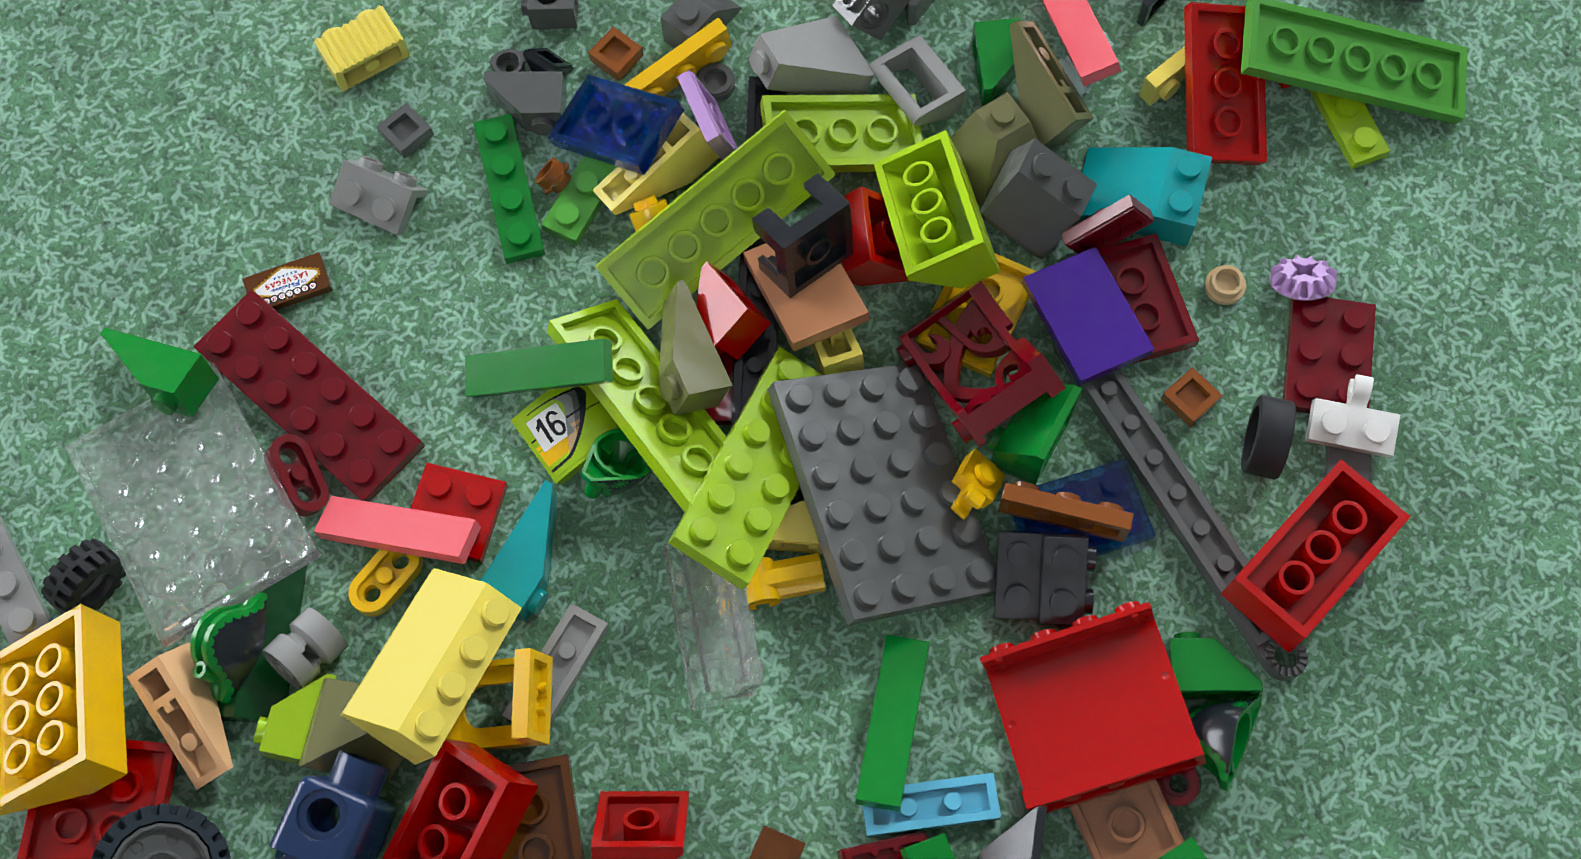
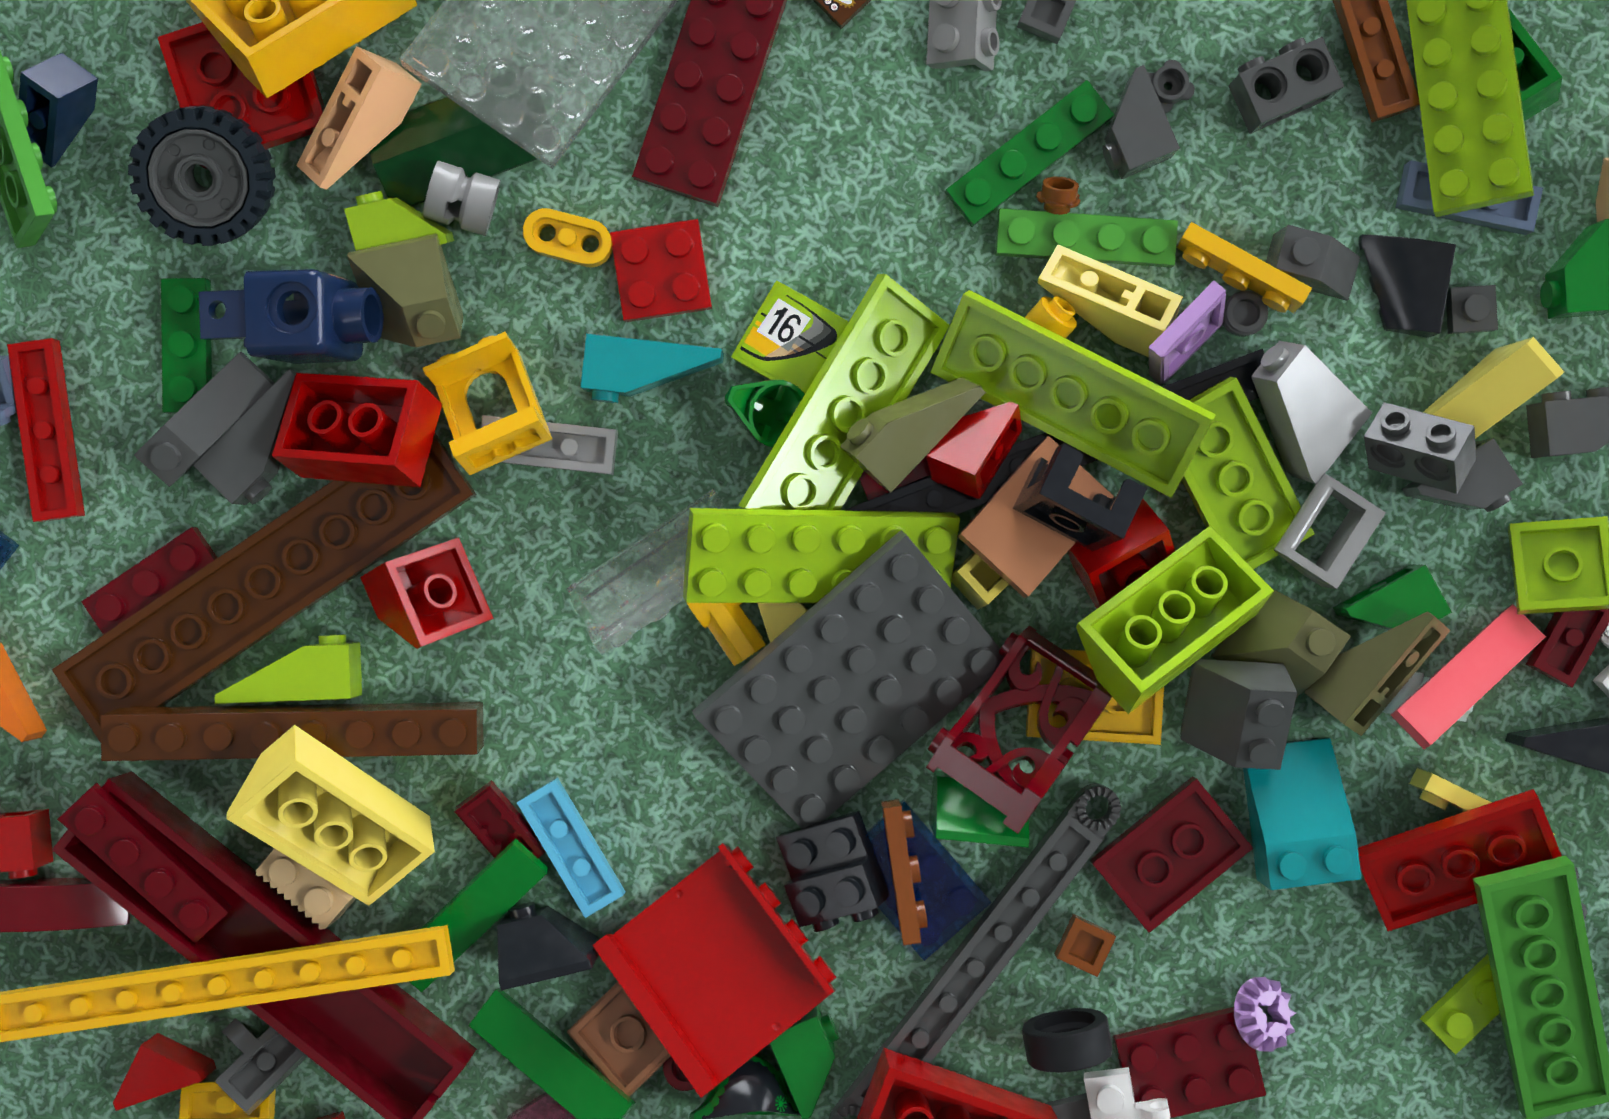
camera: 65 degrees right, 20 degrees up
(229, 645) = (431, 126): hat -> none
(300, 475) = (631, 100): dark red plate -> none
(398, 529) = (613, 228): coral tile -> none
(431, 664) = (487, 332): light yellow slope -> none
(539, 368) = (832, 288): green tile -> none
(546, 61) = (1190, 123): black slope -> none
(615, 53) = (1232, 192): dark orange plate -> none
(616, 124) = (1138, 237): clear blue plate -> none
(892, 723) = (631, 783): green tile -> none
(978, 483) = (899, 773): yellow plate -> none
(1087, 316) = (1126, 813): dark purple tile -> none
(1108, 225) = (1235, 799): dark red plate -> none
(1225, 285) = (1226, 935): tan plate -> none

